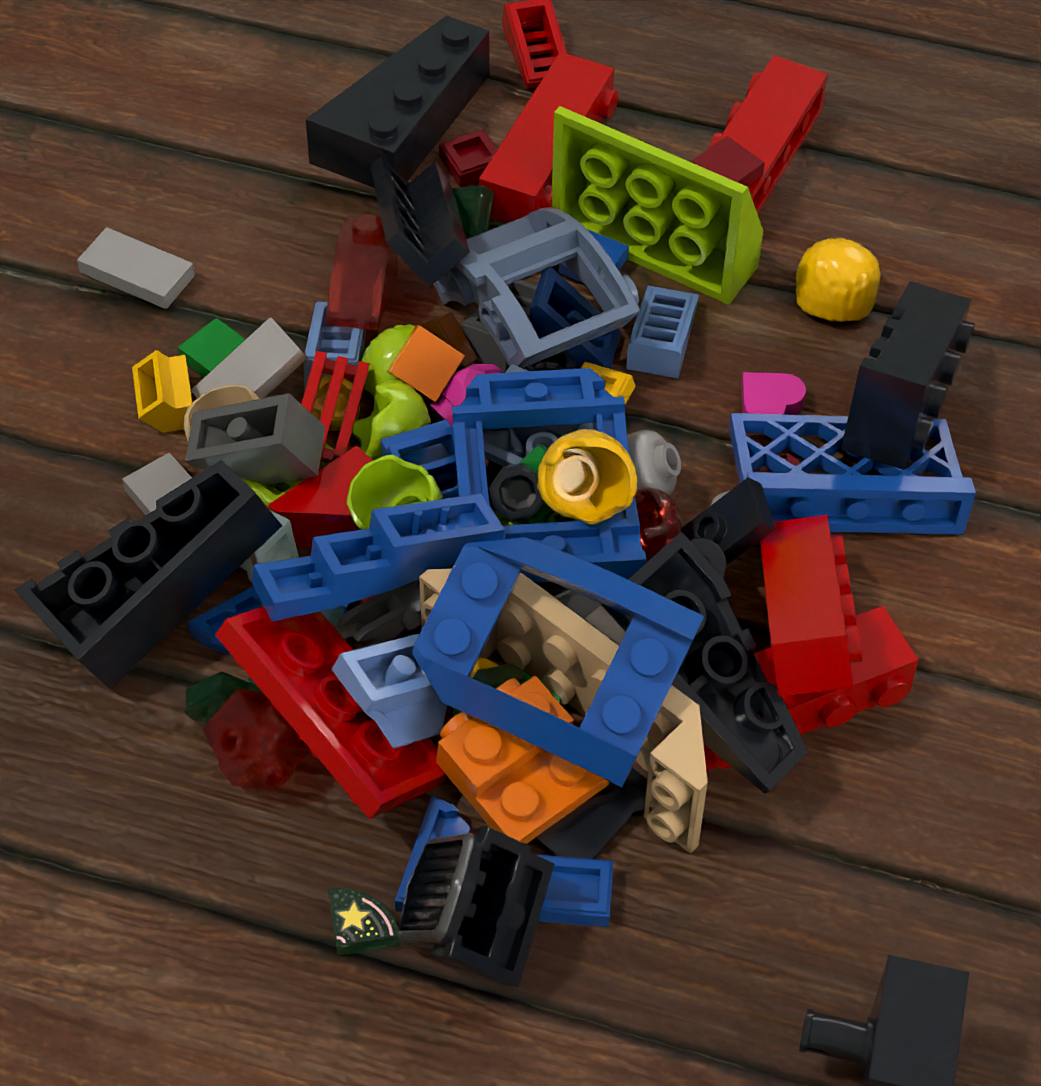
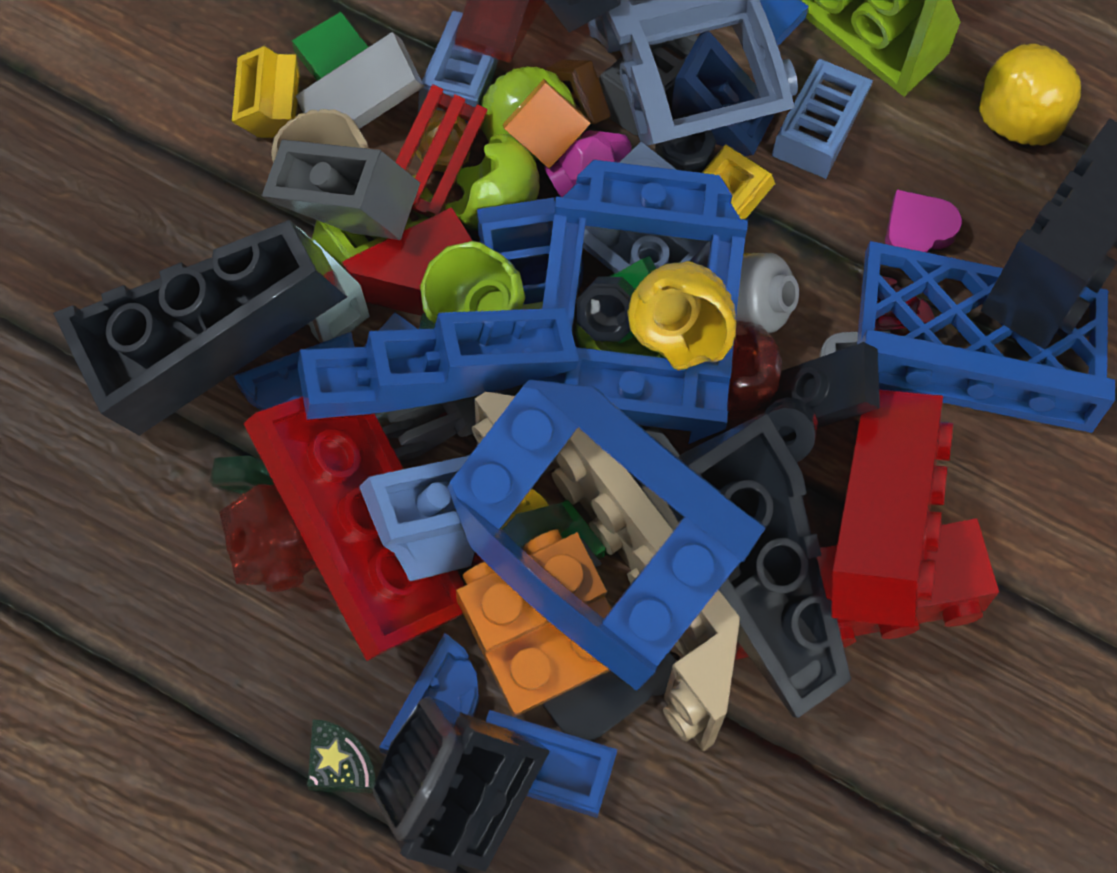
camera: 10 degrees right, 15 degrees up
(154, 481) = (239, 207): light grey tile -> none

